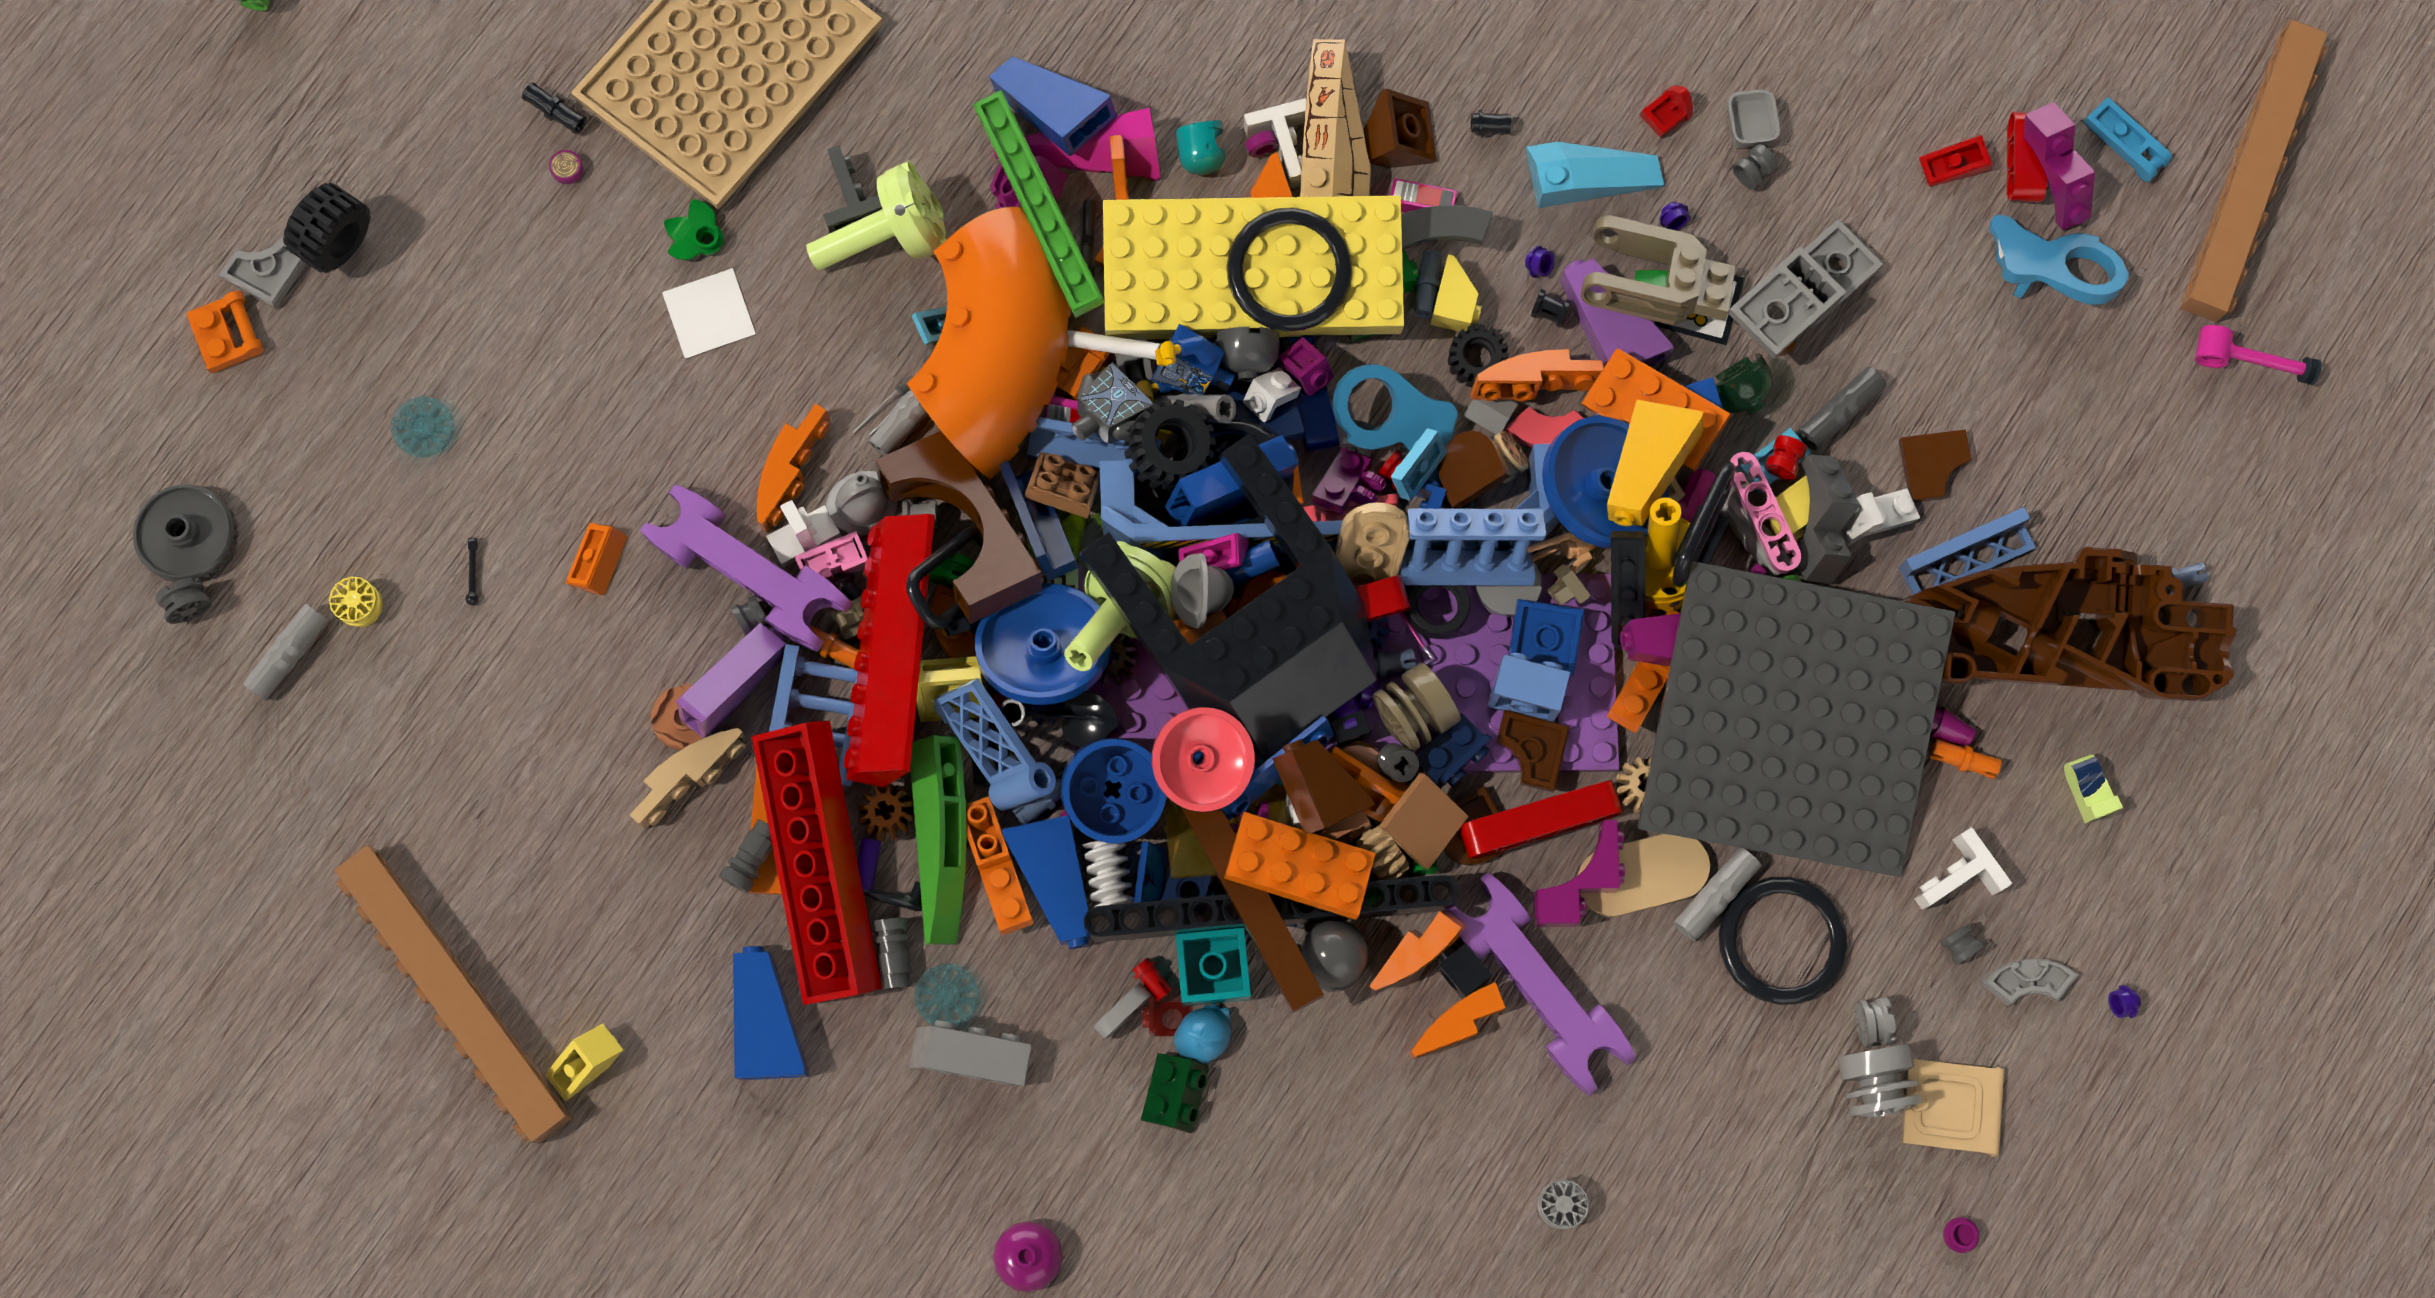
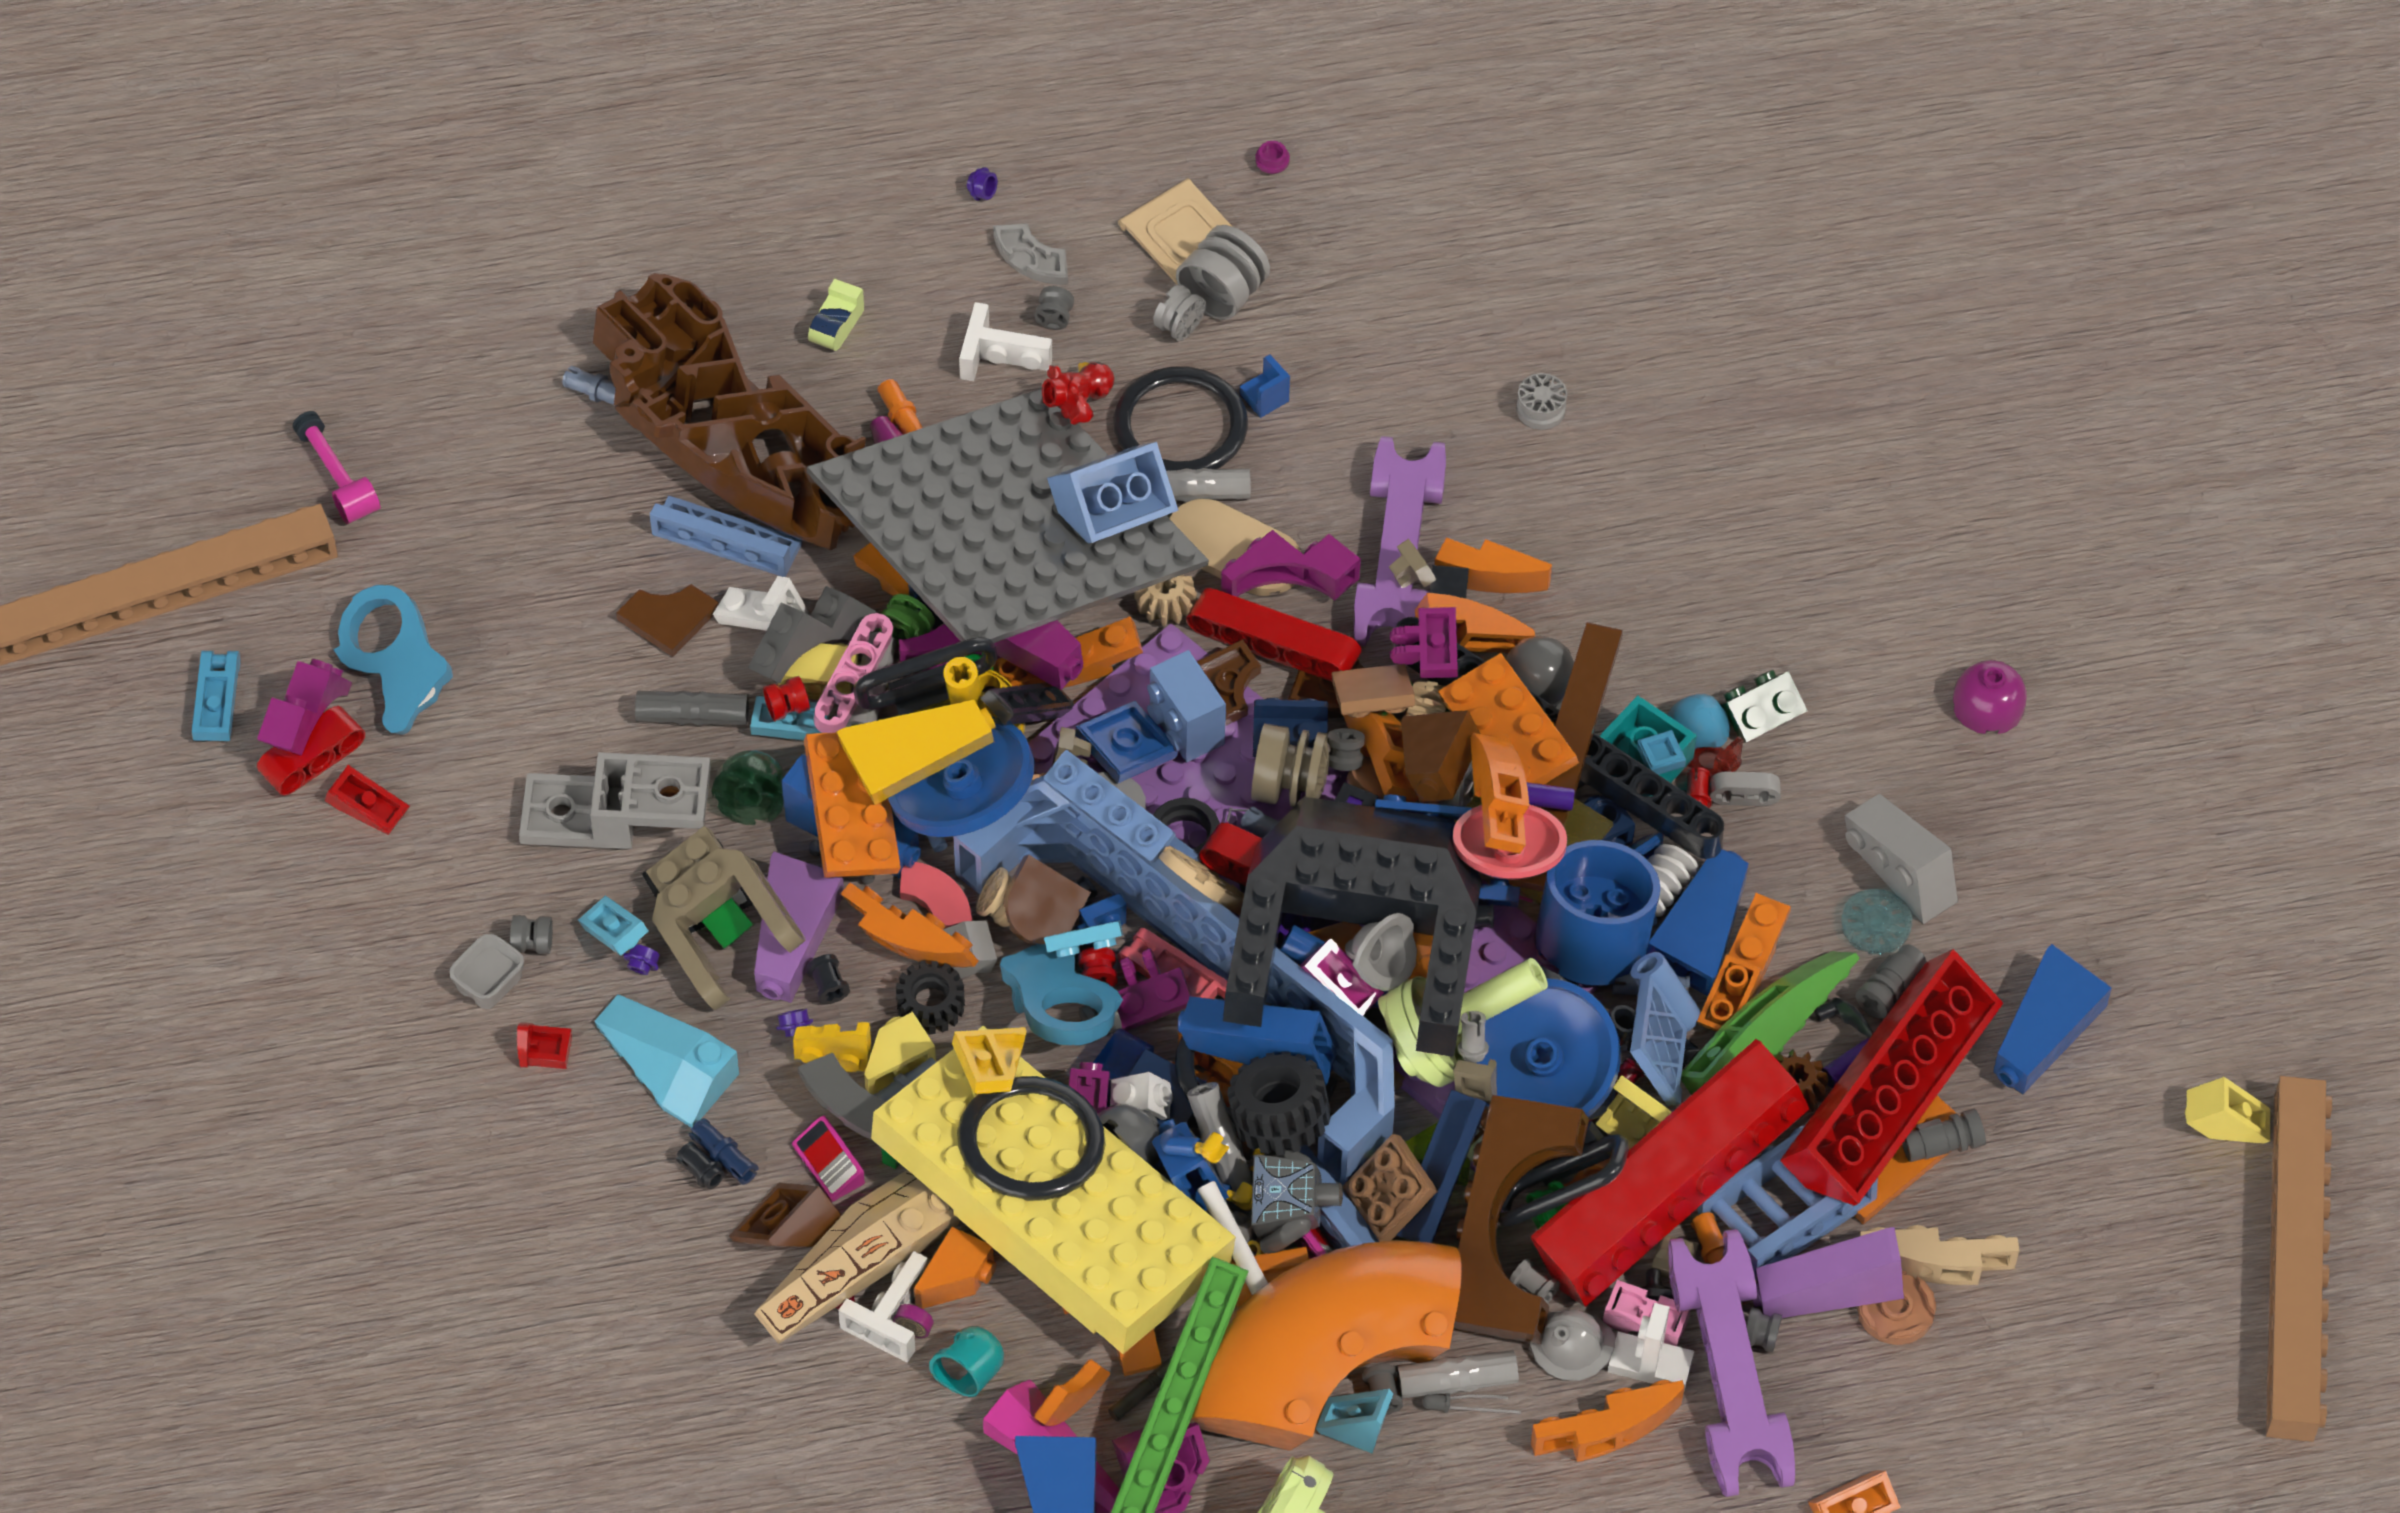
camera: 135 degrees left, 20 degrees down
(1068, 581) = (1476, 1079): none -> dark tan tile
(1086, 604) = (1473, 1043): none -> light grey pin
(1188, 959) = (1661, 752): none -> dark azure tile
(1220, 825) = (1550, 796): none -> dark purple axle
(1242, 784) = (1503, 792): none -> orange slope
(1365, 289) = (990, 1057): none -> yellow wing
(1412, 887) = (1436, 643): none -> magenta hinge
(1487, 143) = (724, 1150): none -> dark blue pin
(1496, 261) = (849, 1047): none -> yellow wing
(1499, 953) = (1411, 566): none -> dark tan tile
(1712, 213) = (613, 925): none -> medium azure plate
(1747, 803) = (1114, 492): none -> medium blue slope
(1754, 1022) = (1268, 389): none -> blue panel
(1872, 876) = (1072, 389): none -> red animal

